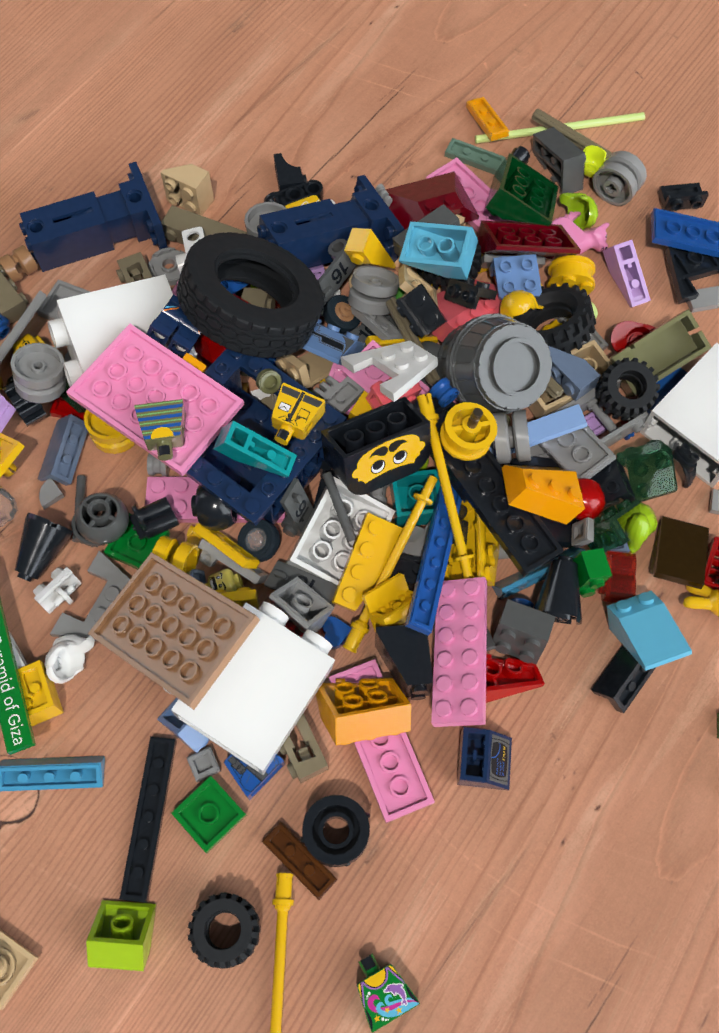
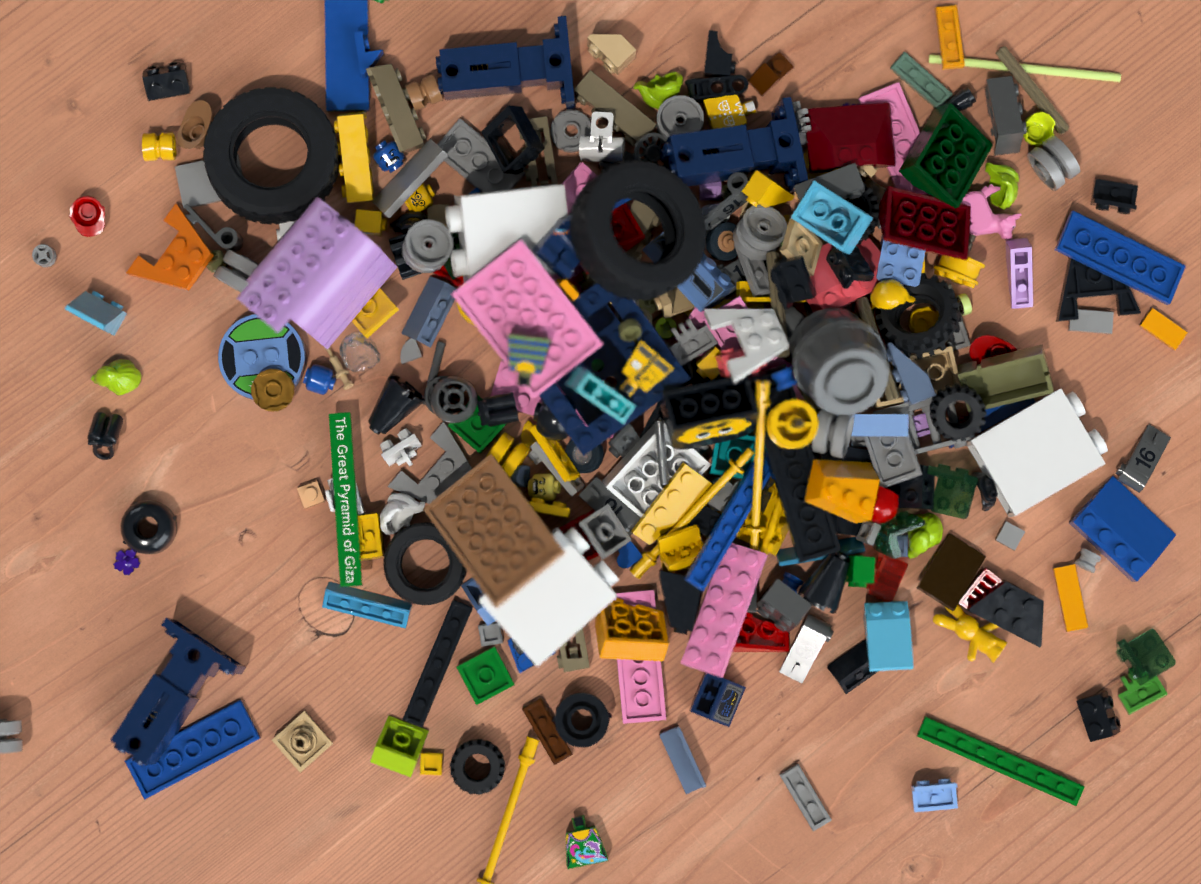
camera: 15 degrees right, 20 degrees up
(78, 683) = (395, 575): none -> black tyre
(105, 257) = (499, 126): none -> black window
(167, 946) = (431, 763): none -> yellow tile
(236, 214) = (659, 88): none -> lime hair
(339, 180) = (770, 73): none -> reddish brown slope
(470, 845) = (682, 760): none -> sand blue panel
(562, 675) = (806, 648): none -> door
(625, 848) = (805, 797): none -> light grey tile

